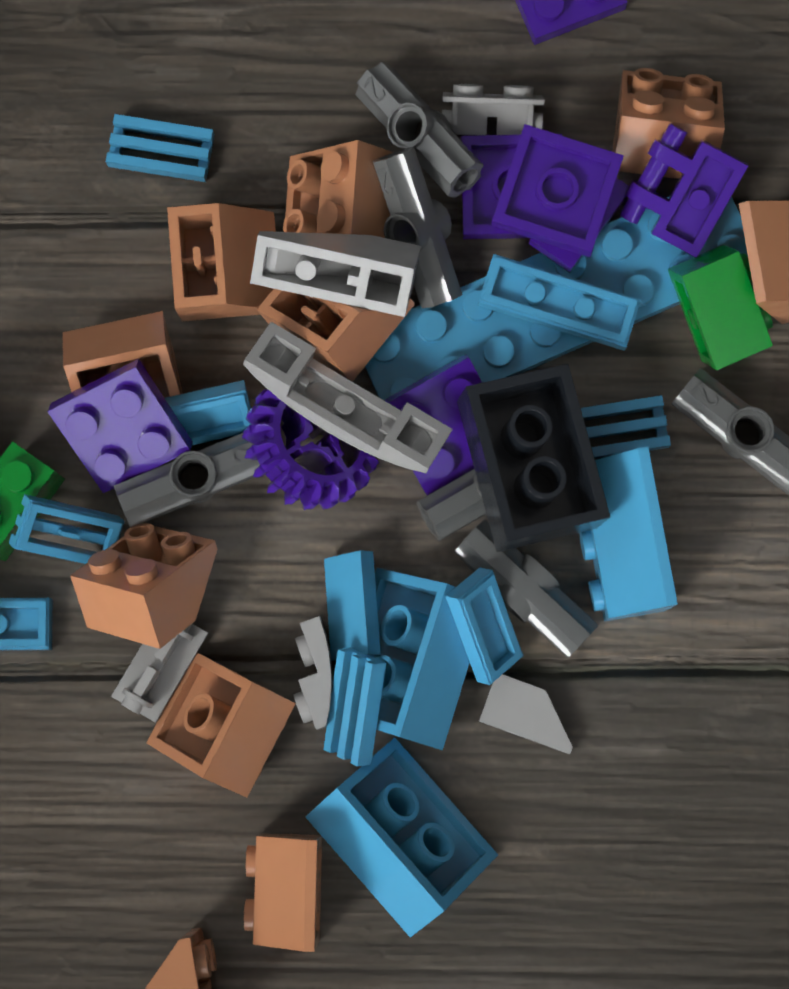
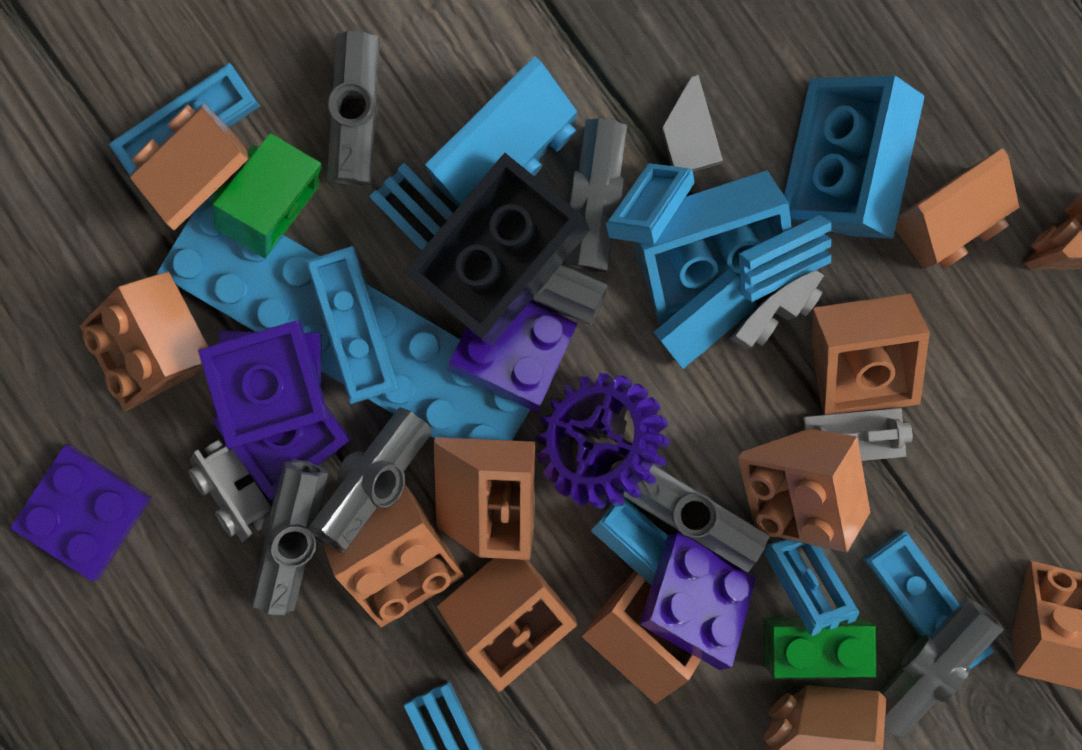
camera: 130 degrees left, 5 degrees up
(338, 268) = (452, 513): light grey slope -> none
(341, 406) = (561, 429): light grey slope -> none
(696, 200) = (191, 270): dark purple plate -> none

